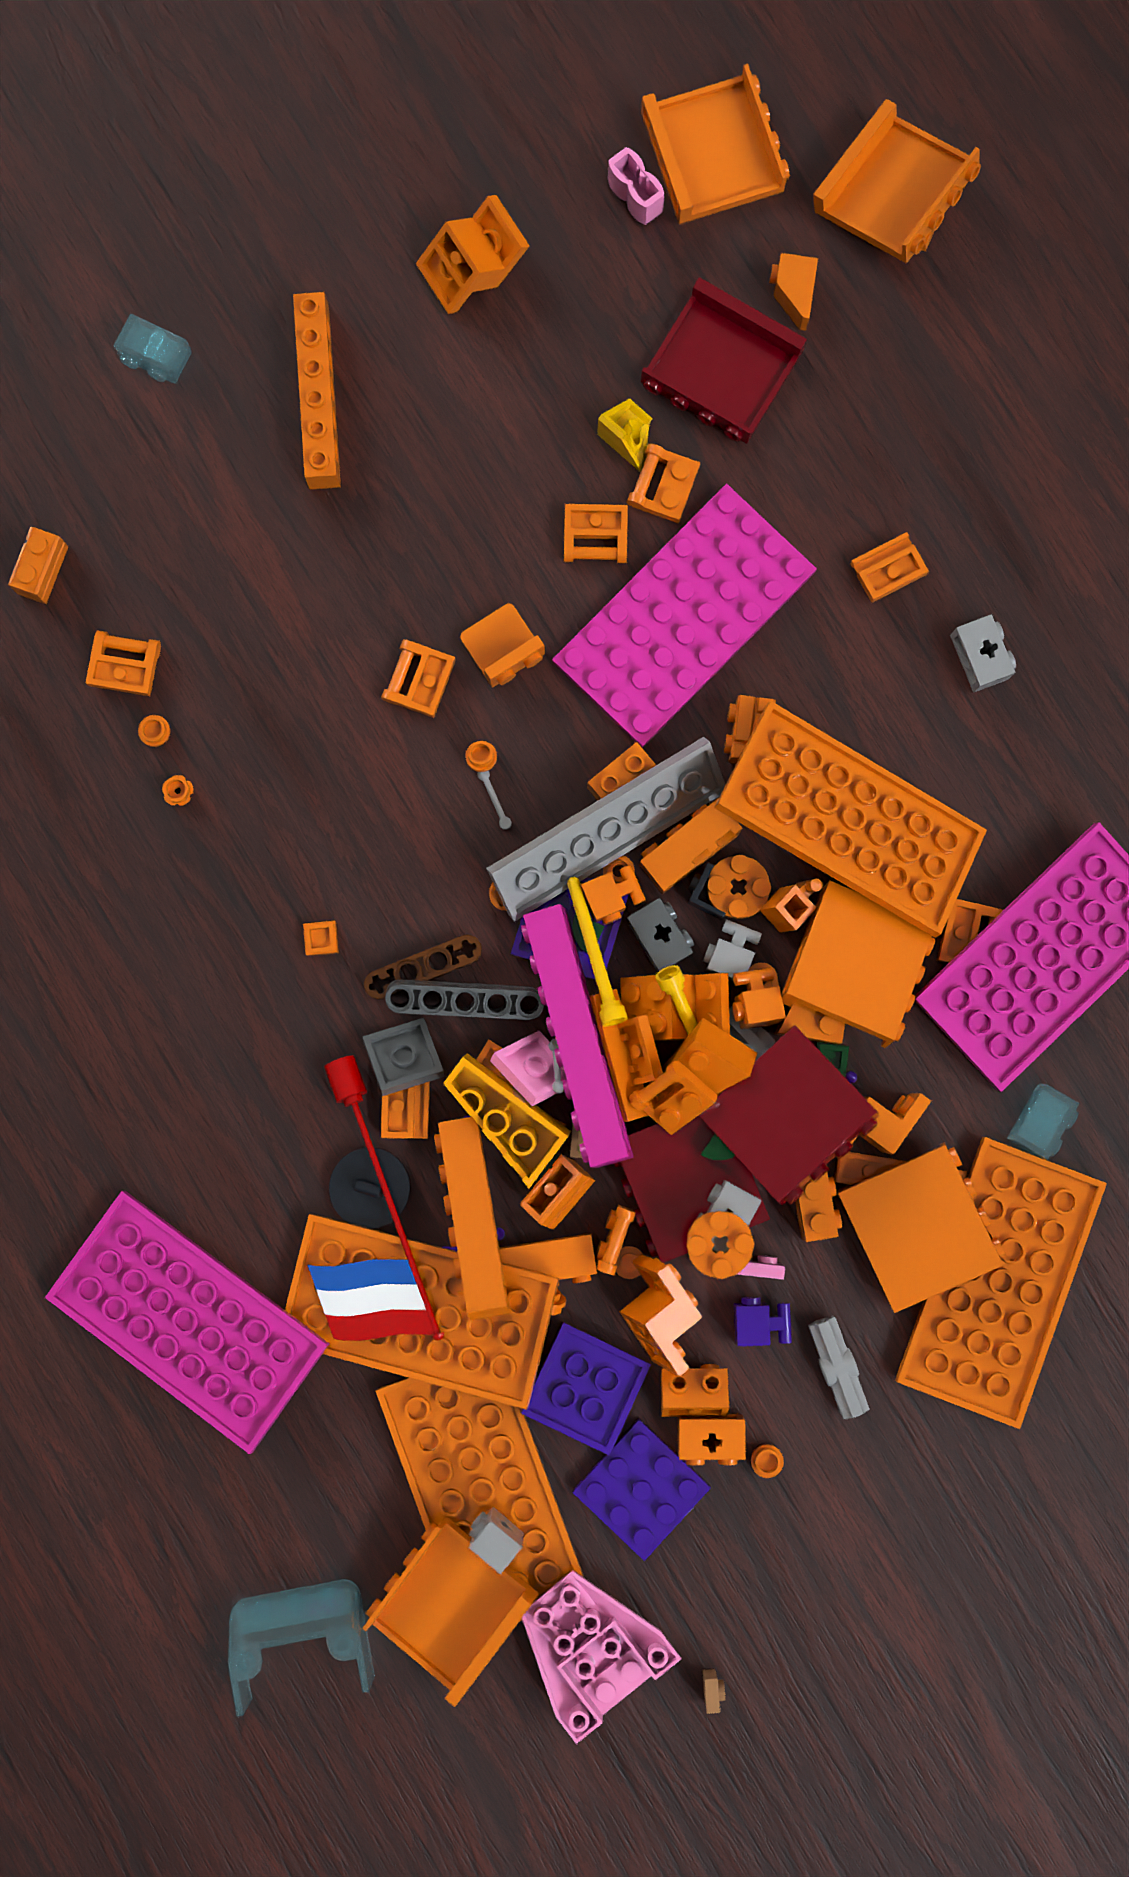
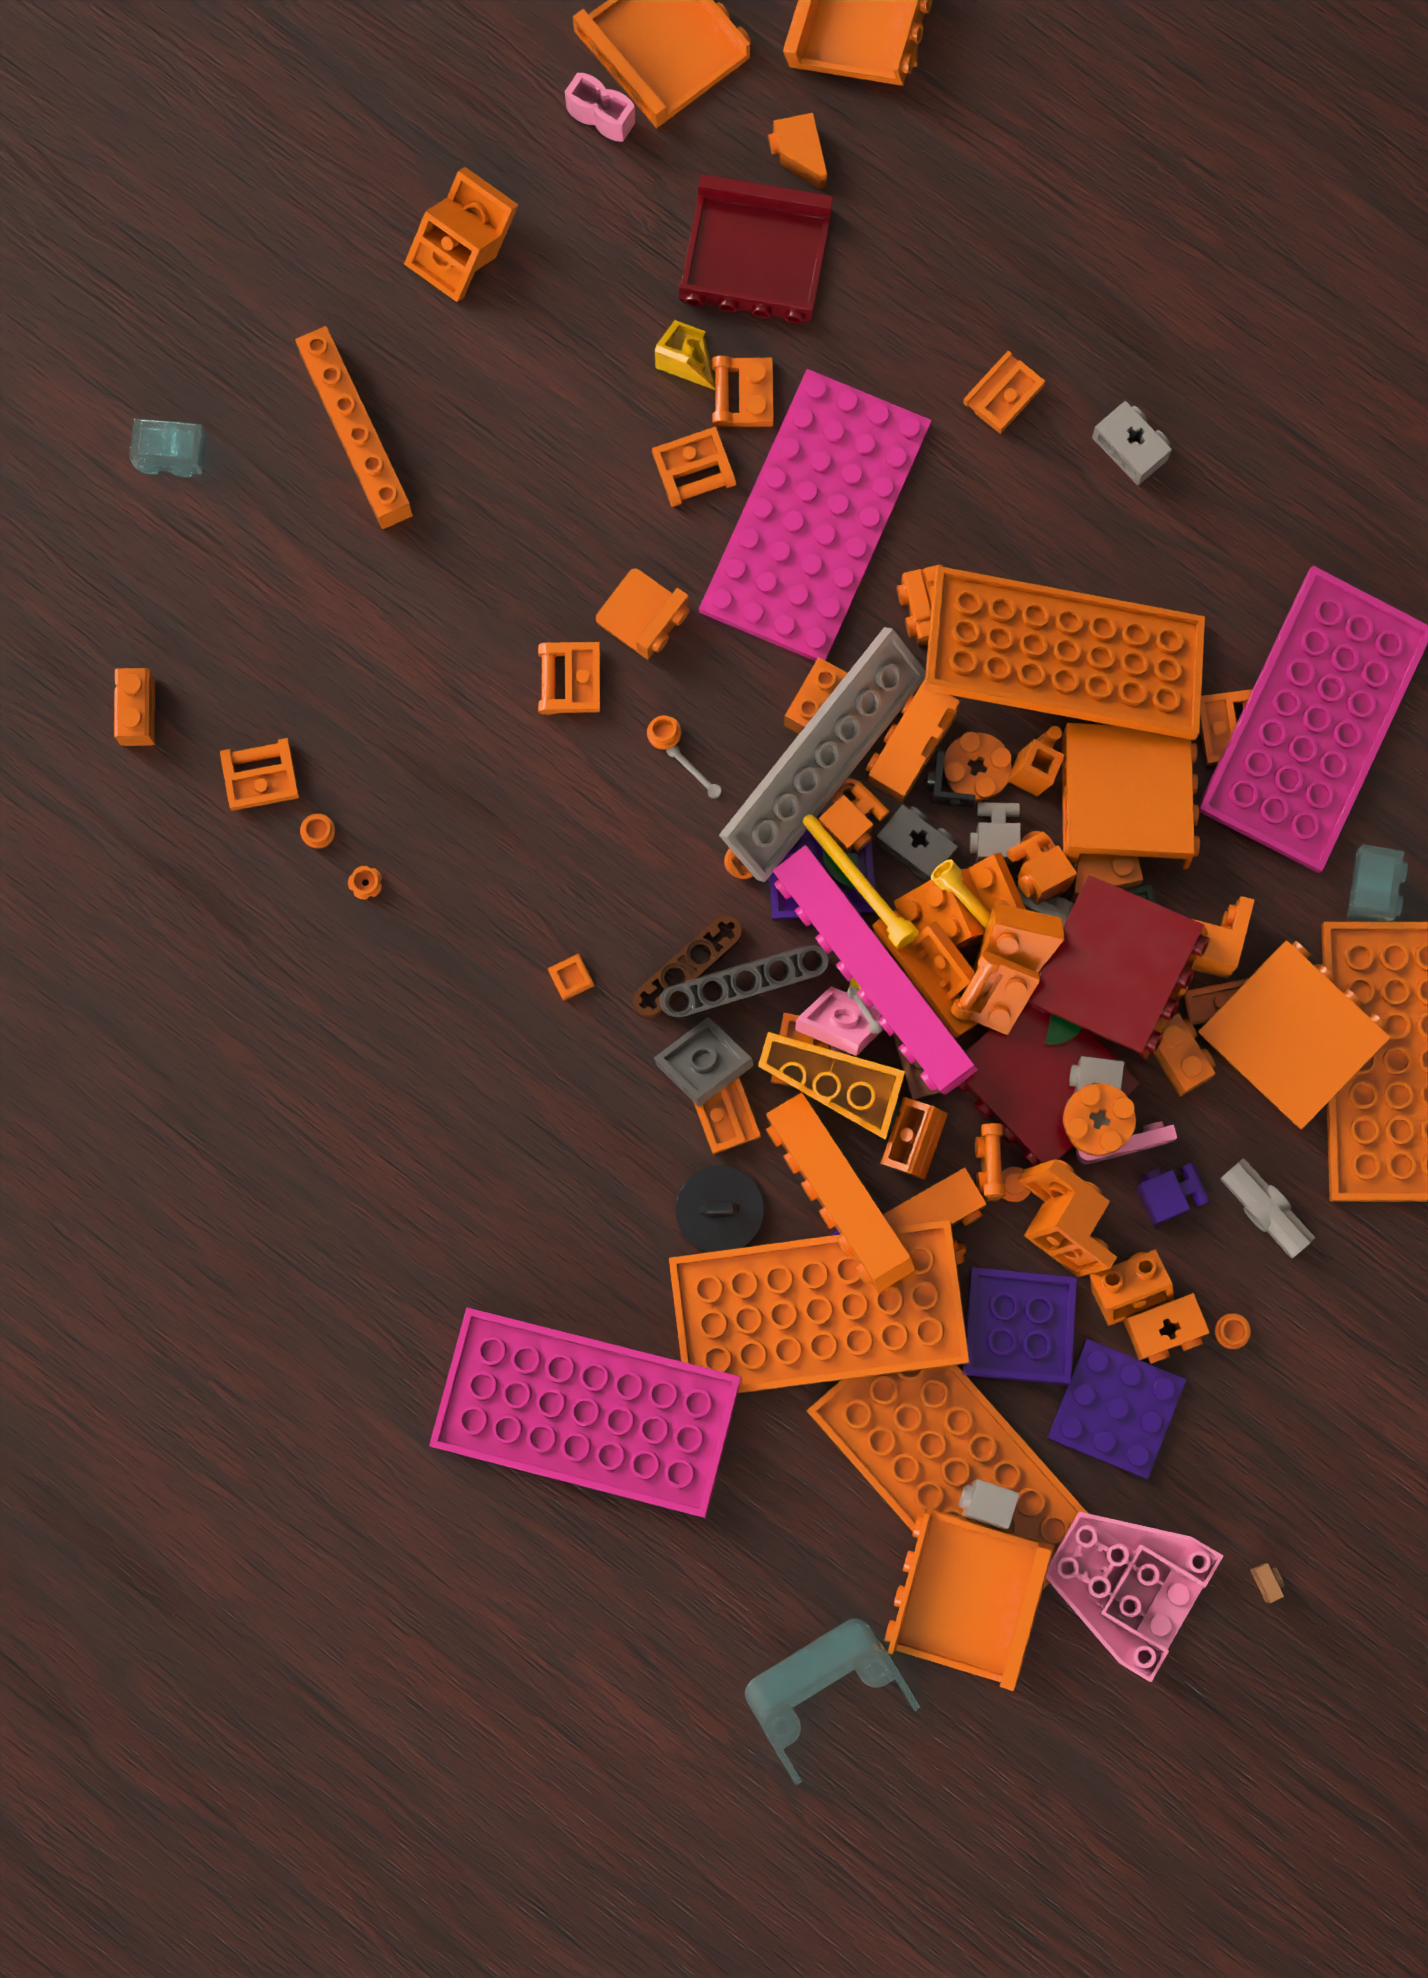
camera: 20 degrees left, 5 degrees down
(377, 1294) = (770, 1309): flag -> none

